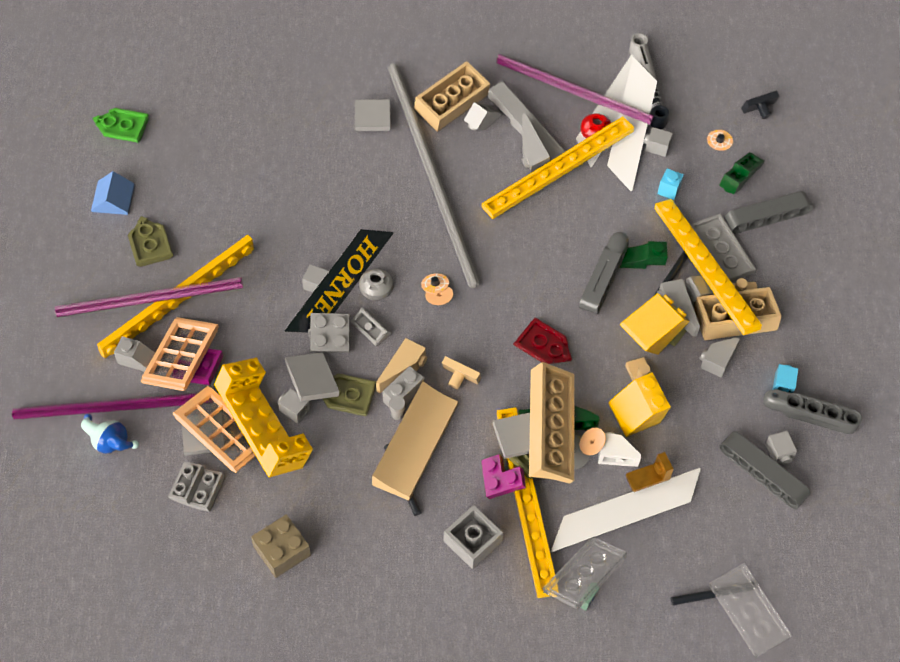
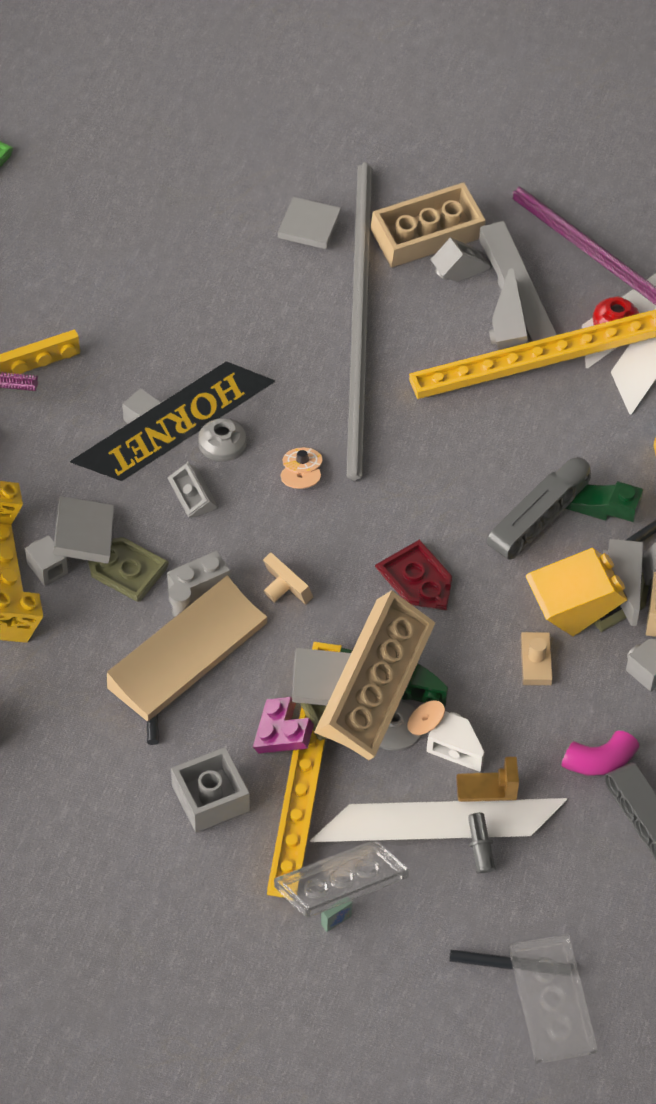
camera: 20 degrees right, 5 degrees down
(329, 333) = (131, 482): light grey plate -> none
(407, 355) = (224, 536): tan slope -> none
(640, 405) = (509, 689): yellow slope -> none
(662, 517) = (481, 843): none -> dark grey axle
(714, 434) = (601, 759): none -> dark pink cylinder

